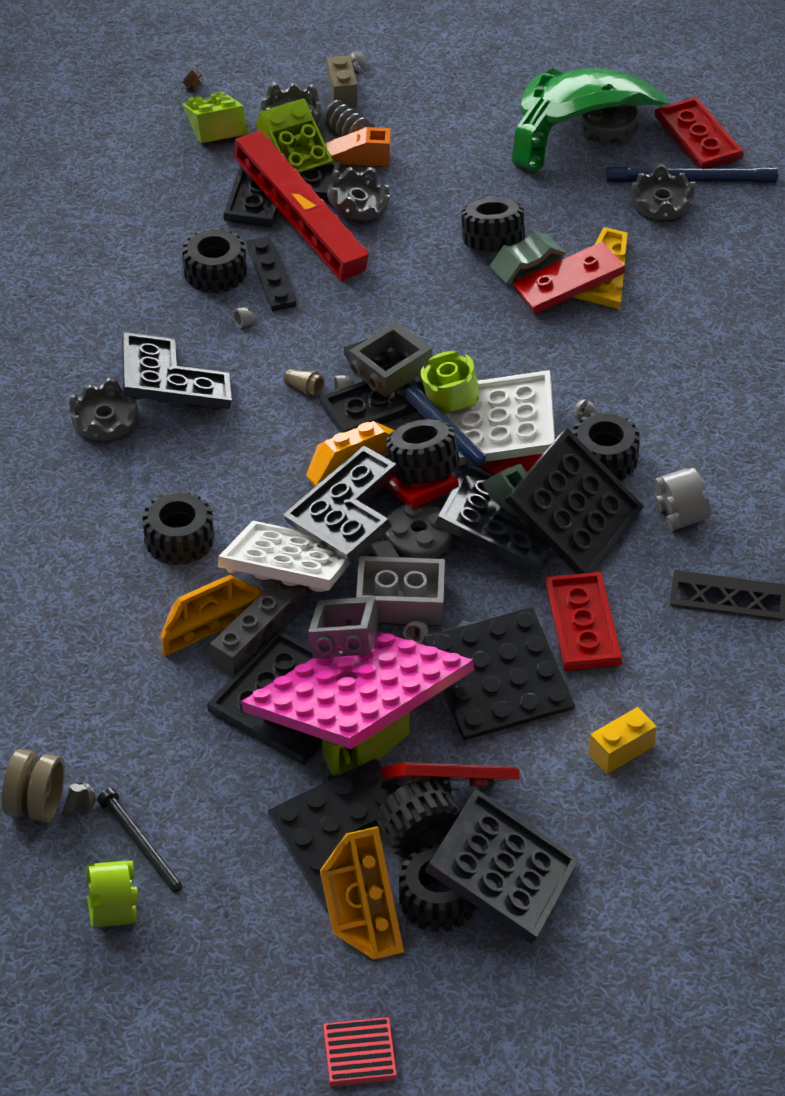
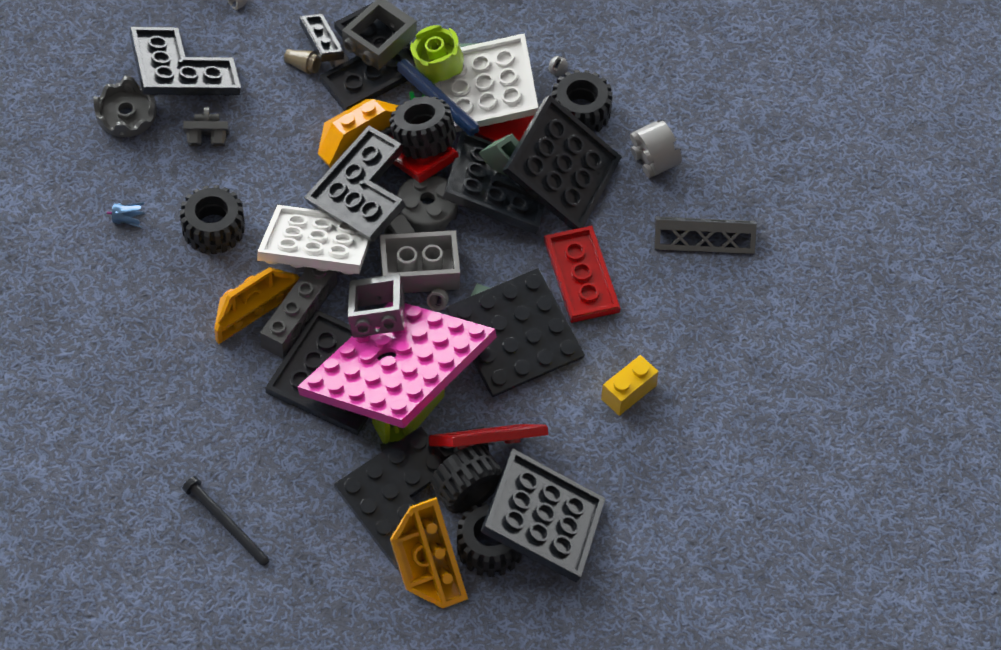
camera: 10 degrees left, 10 degrees up
(33, 785) = (126, 483): dark tan wheel -> none
(79, 796) = (167, 487): dark grey plate -> none
(82, 514) = (123, 213): none -> flat silver piece
(111, 893) = (211, 577): lime brick -> none
(187, 435) = (206, 125): none -> dark grey hips
(327, 360) = (321, 38): none -> tile

